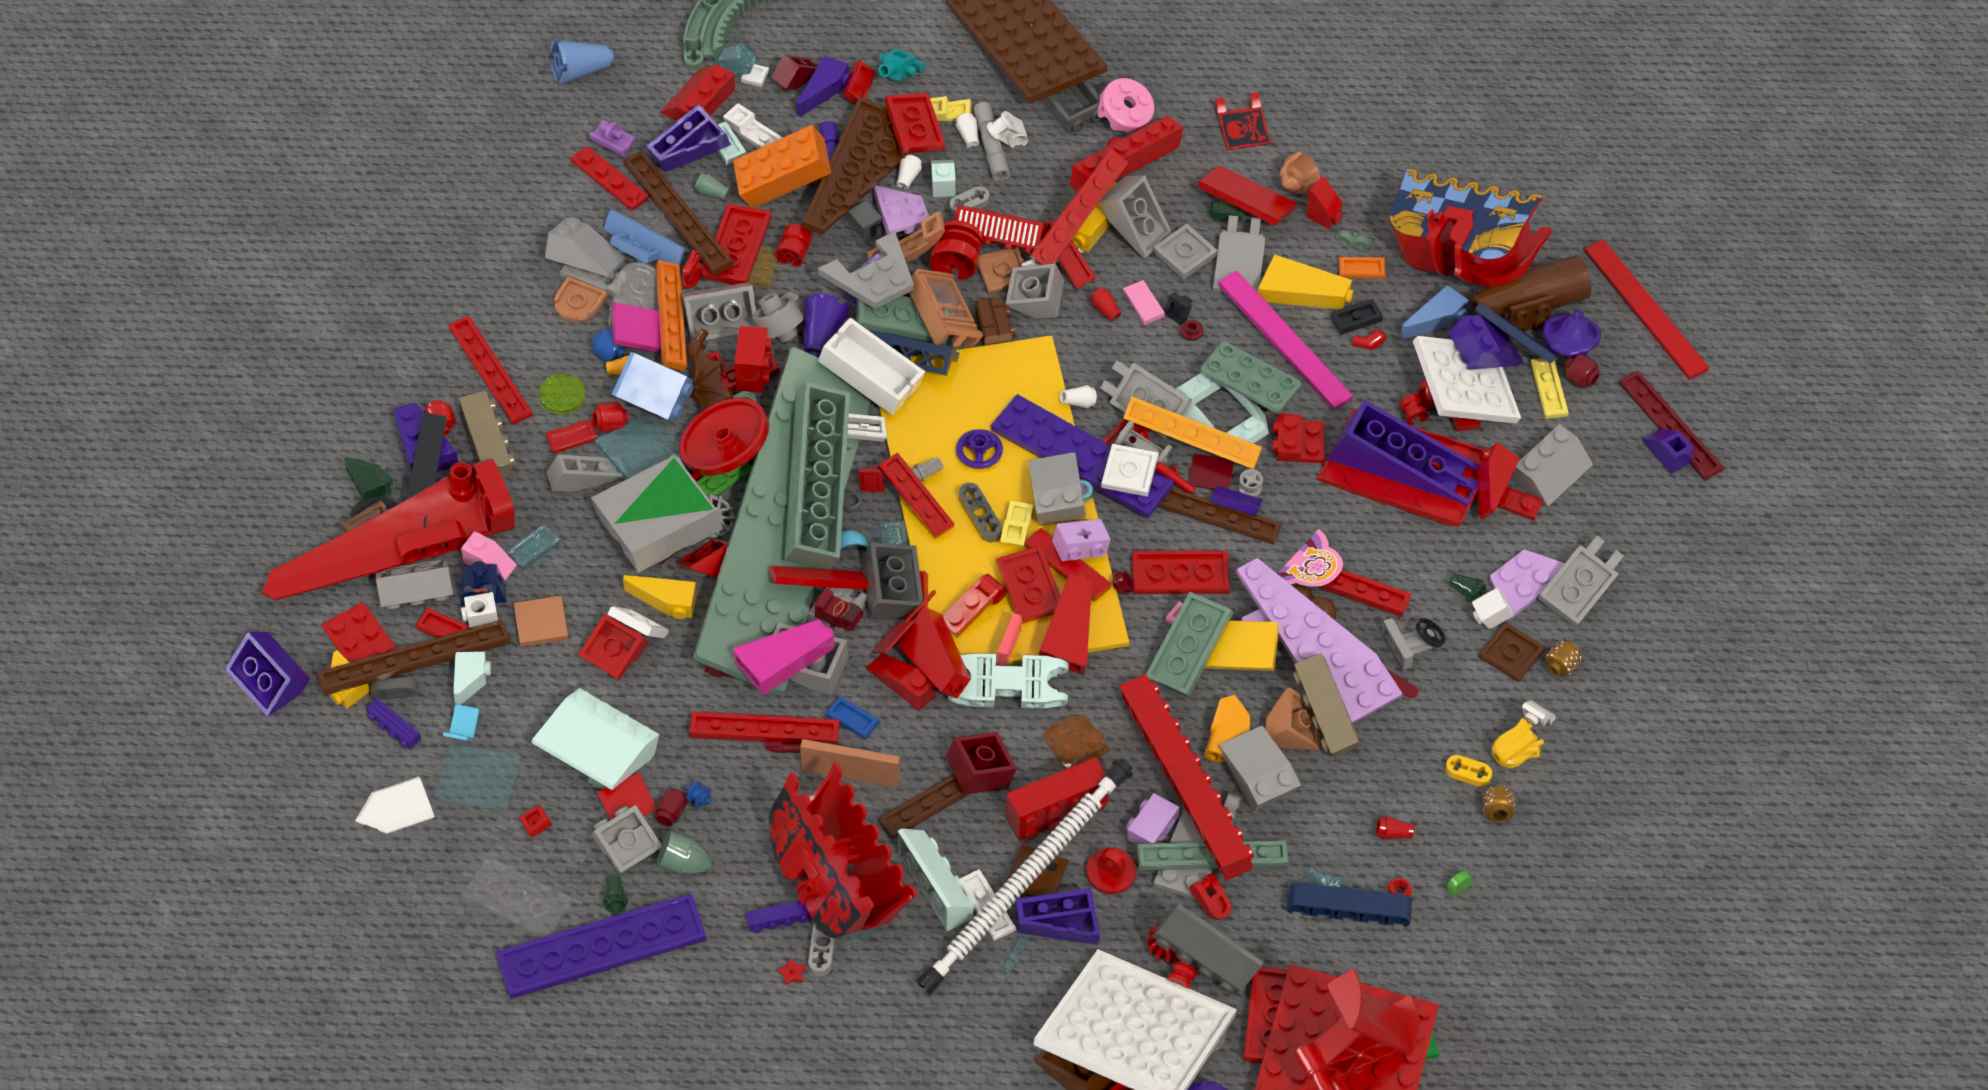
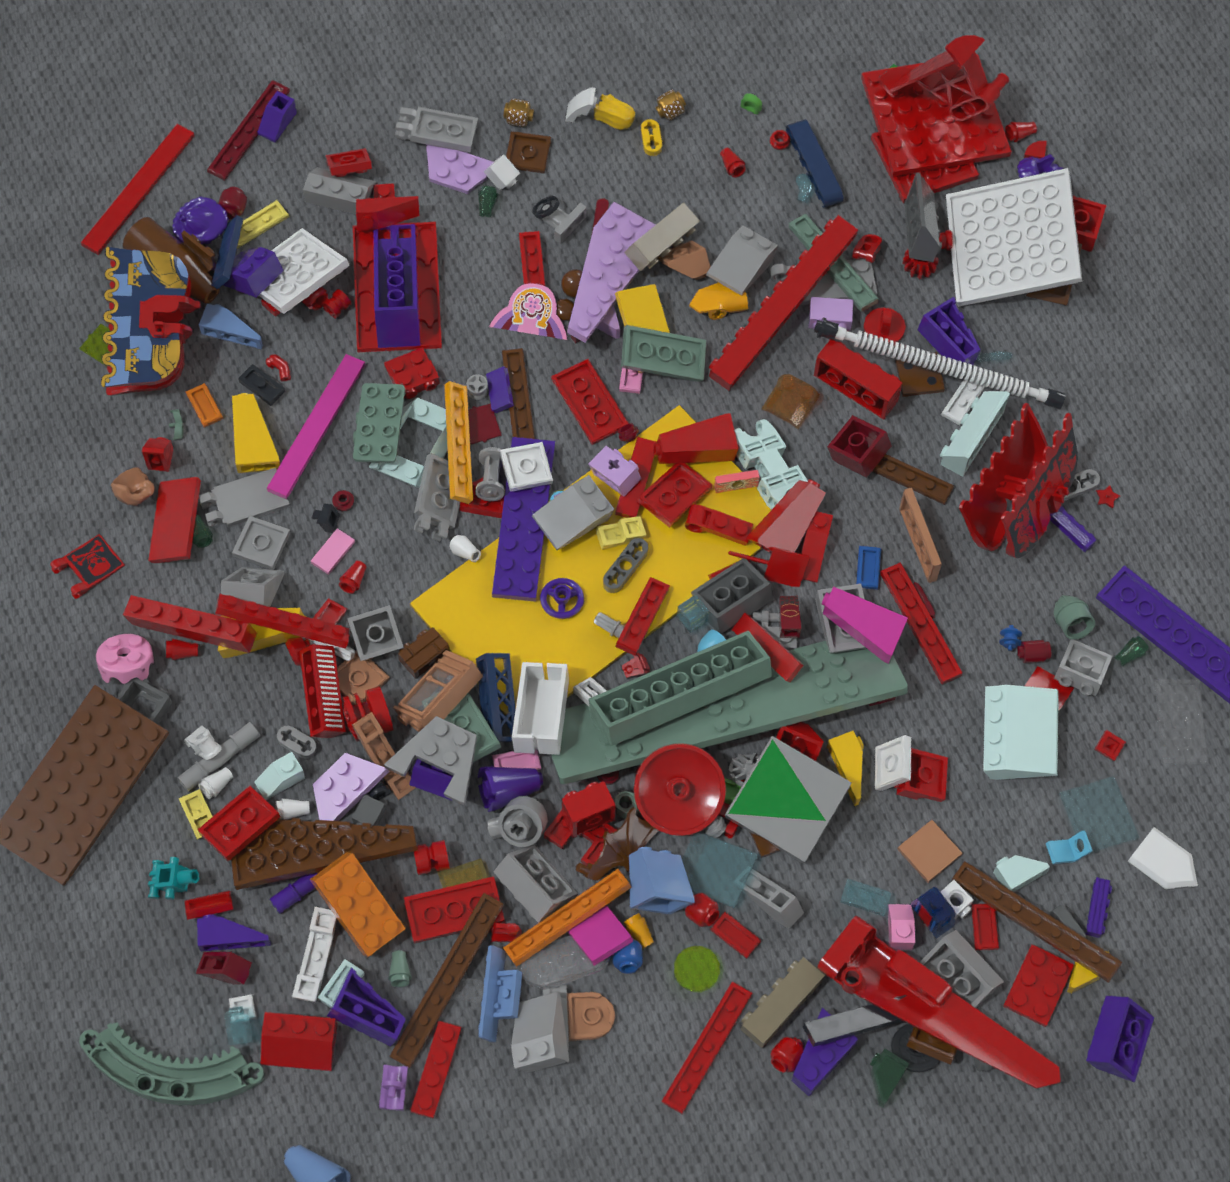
camera: 120 degrees left, 10 degrees up
(1172, 473) = (506, 441): red piece -> none
(1577, 482) = (347, 162): none -> red plate

